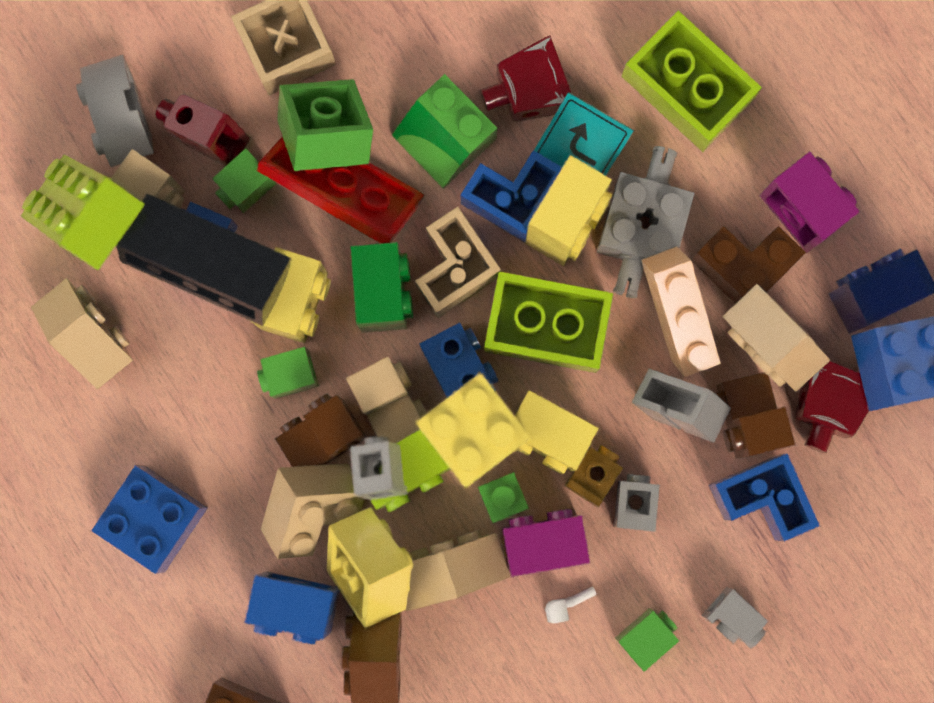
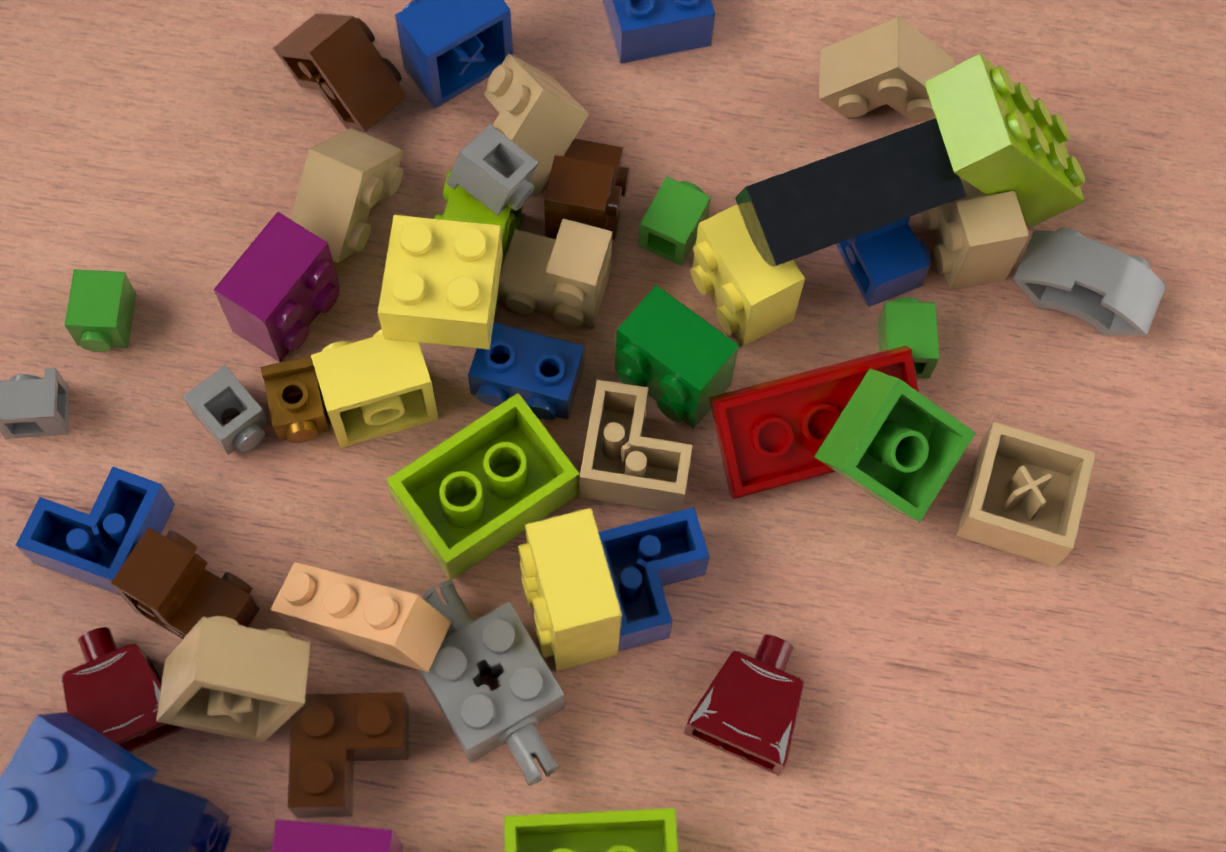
camera: 125 degrees right, 15 degrees down
(203, 128) = (995, 341): dark red torso -> none
(368, 567) = (416, 111): light yellow brick -> none
(445, 131) = (781, 577): bright green slope -> none
(503, 497) = (356, 297): bright green brick -> none
(557, 609) = (216, 265): white hand -> none
(584, 134) = (636, 696): teal piece -> none
(681, 405) = (283, 530): light grey piece -> none

